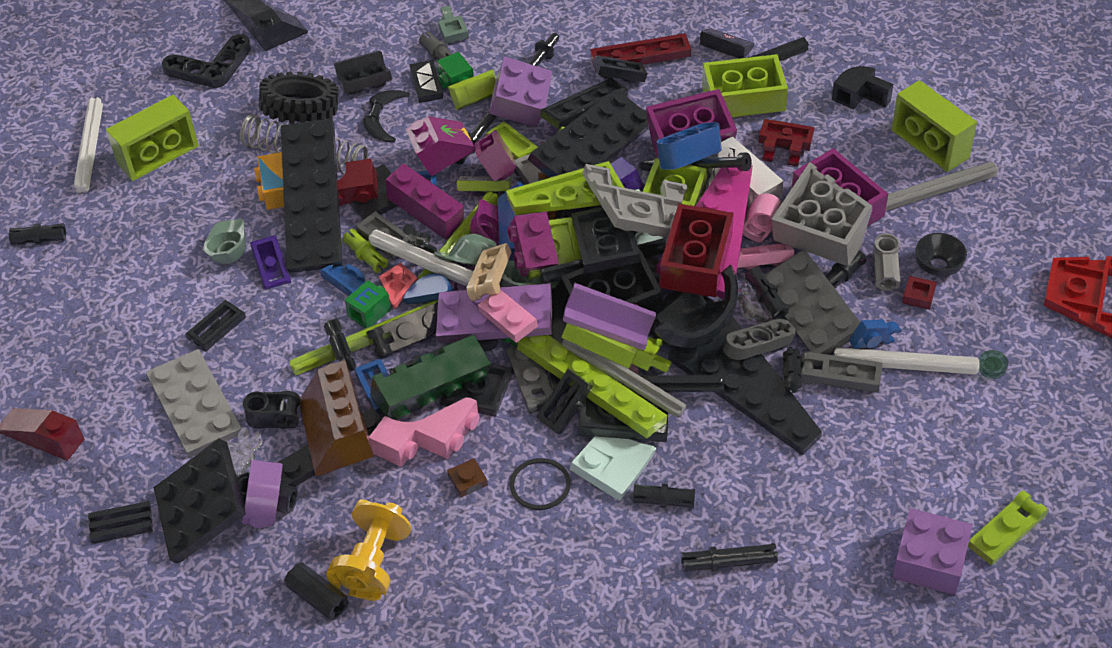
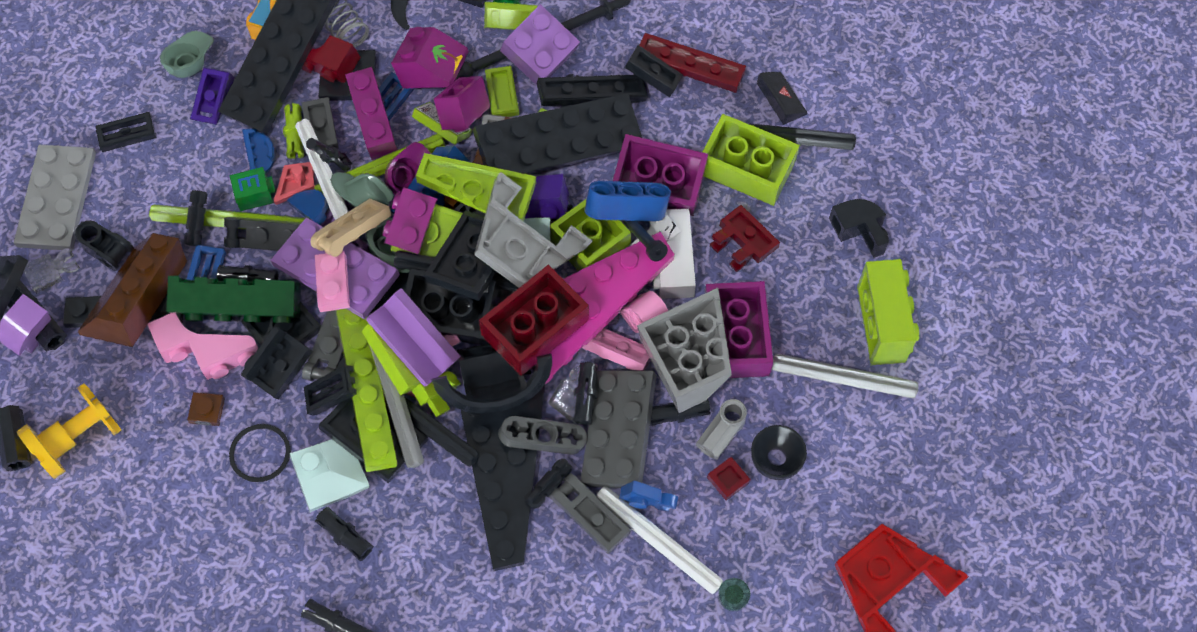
camera: 30 degrees right, 15 degrees up
(502, 407) = (276, 362): none -> black bracket

